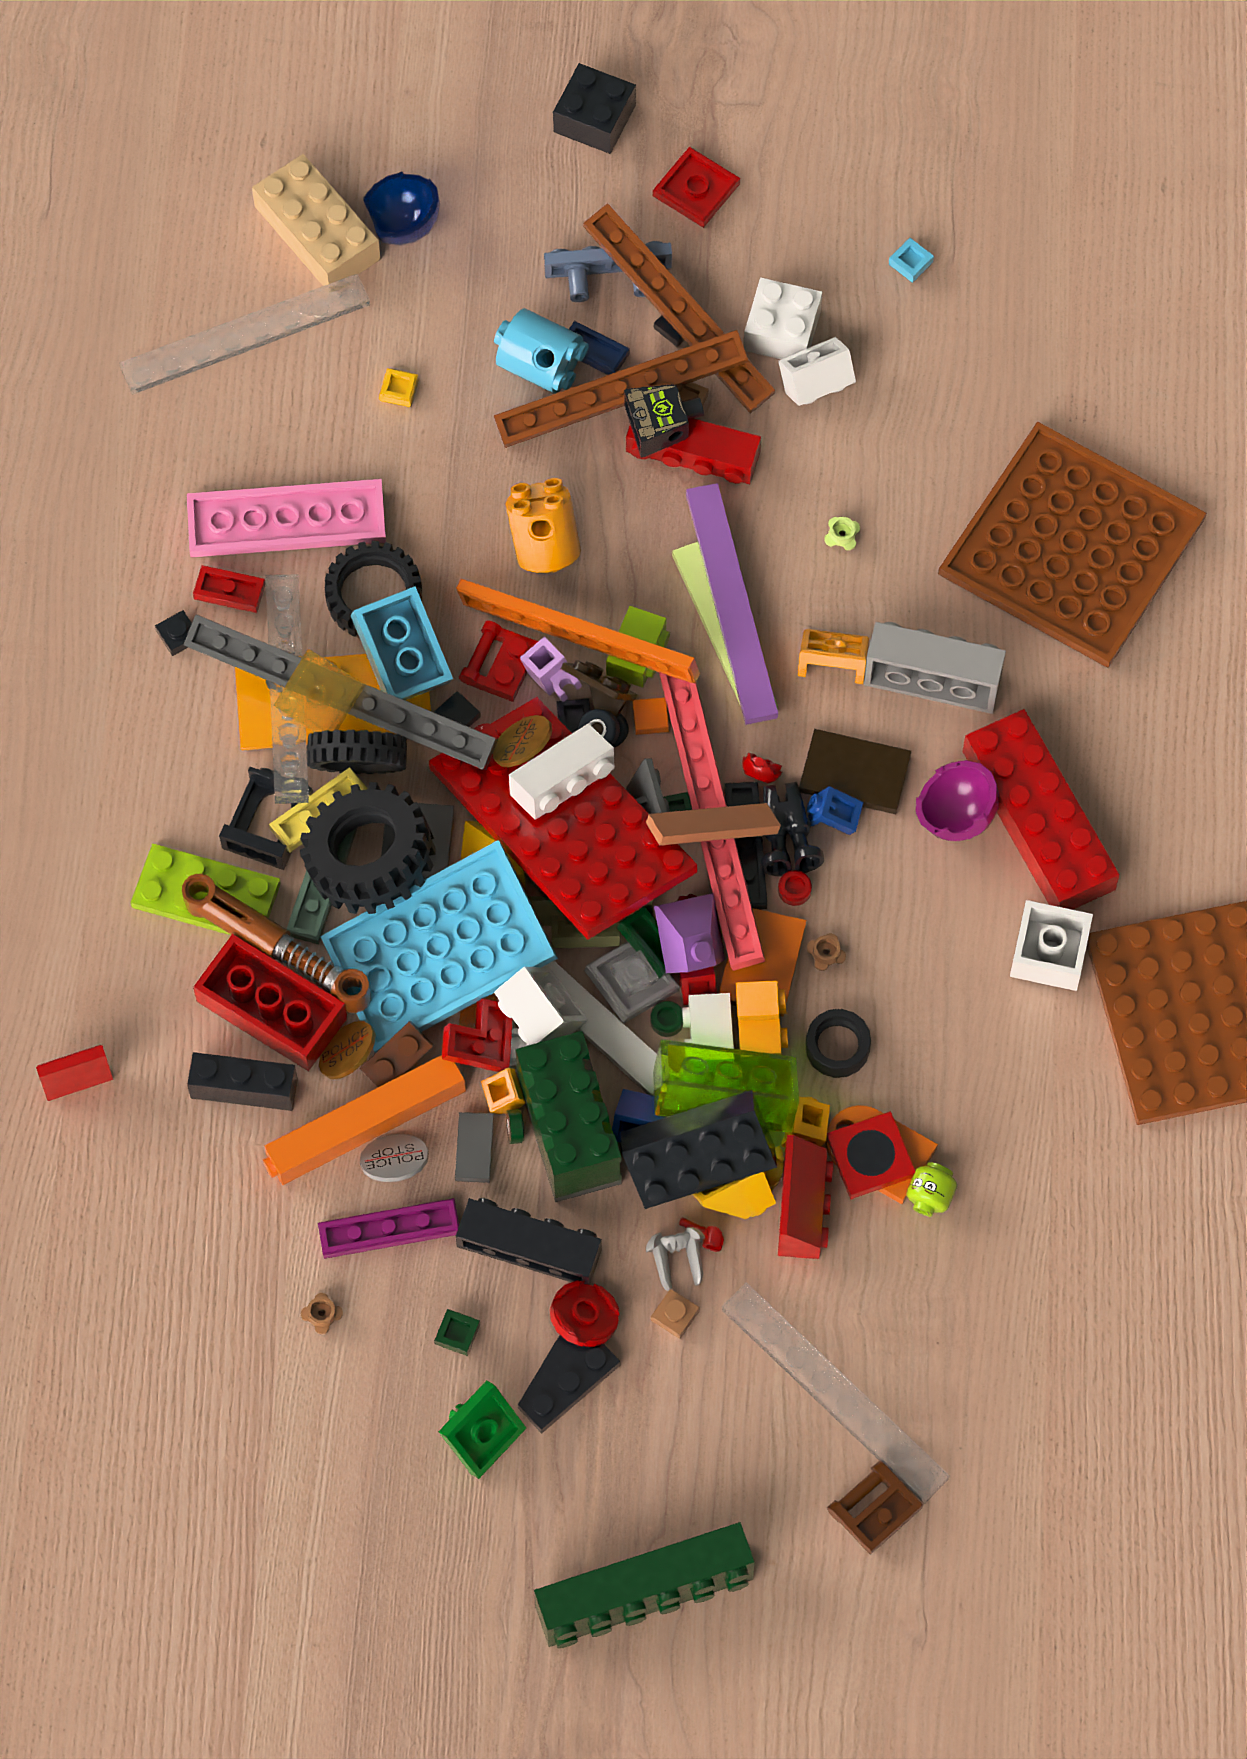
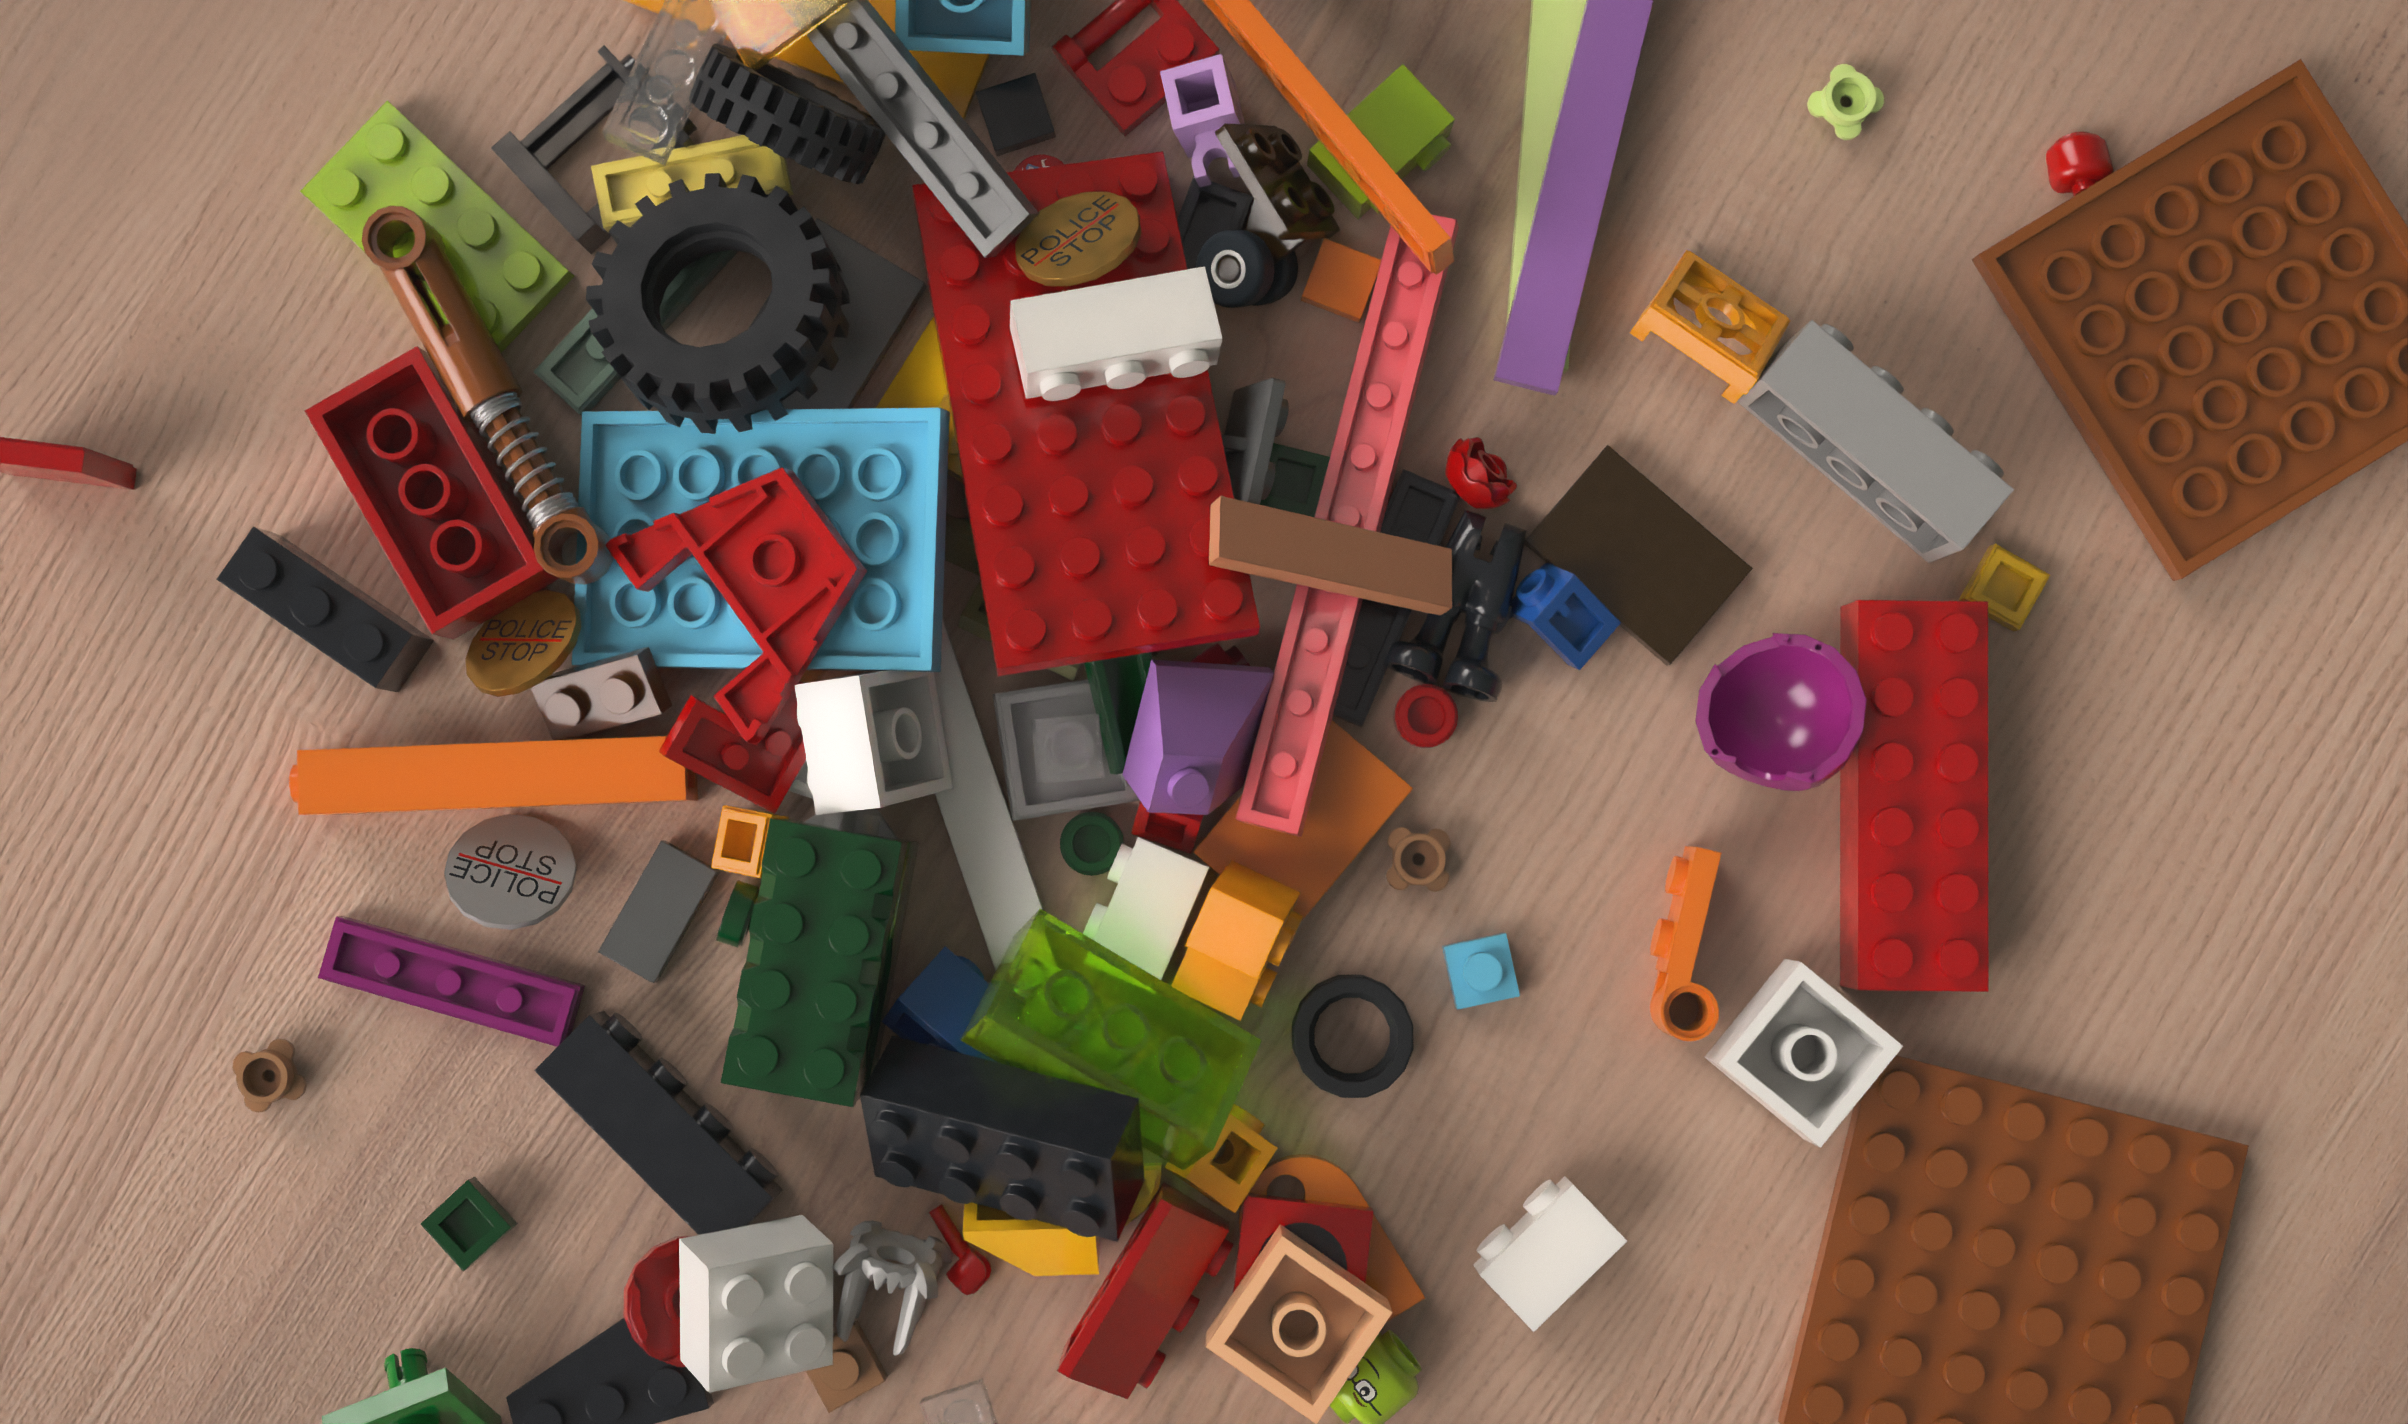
camera: 30 degrees right, 20 degrees up
(452, 945) = (774, 566): none -> red wing
(619, 1285) = (756, 1302): none -> white brick
(881, 1165) = (1298, 1324): none -> light nougat brick
(883, 988) = (1480, 971): none -> medium azure plate
(962, 511) = (2078, 162): none -> red piece
(967, 929) = (1678, 940): none -> orange plate
(984, 1093) = (1547, 1251): none -> white brick
(1035, 703) = (2007, 585): none -> yellow tile

